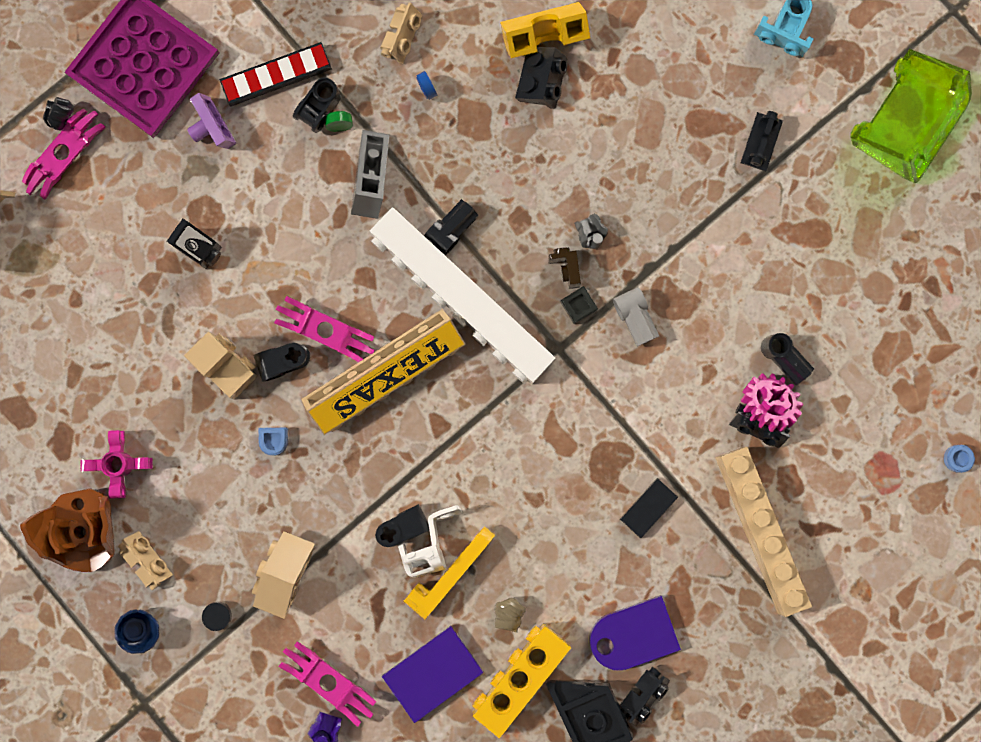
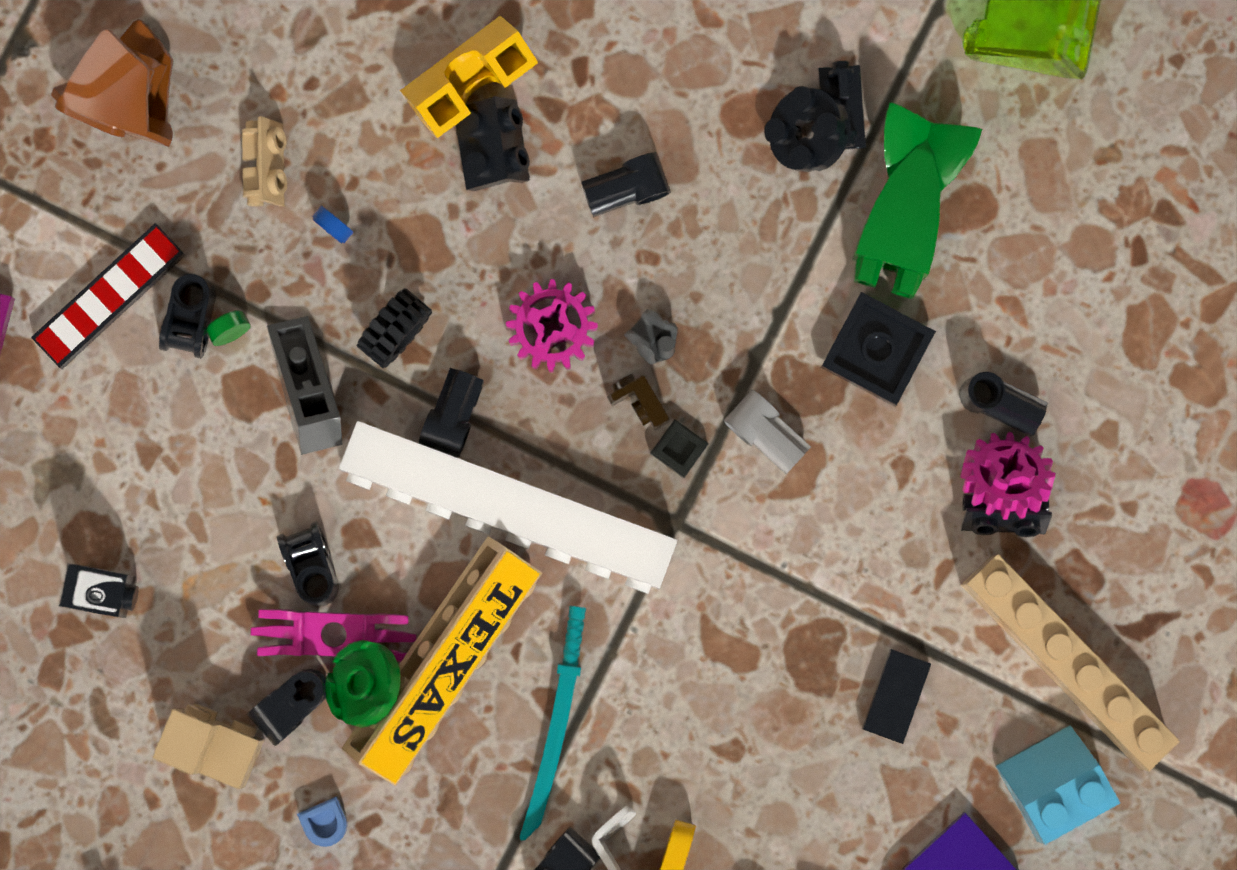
camera: 20 degrees left, 0 degrees up
(210, 123) = (45, 407): medium lavender tile -> none
(328, 277) = (308, 562): none -> black piece
(330, 365) = (363, 683): none -> green tile
(437, 161) = (394, 328): none -> black tyre
(456, 411) = (568, 673): none -> teal sword
(541, 209) = (534, 318): none -> dark pink gear
(621, 134) = (637, 182): none -> black piece
(724, 294) = (878, 349): none -> black plate
(725, 602) = (1057, 785): none -> medium azure slope
(749, 149) = (786, 127): none -> black plate
(775, 219) = (906, 214): none -> green hips

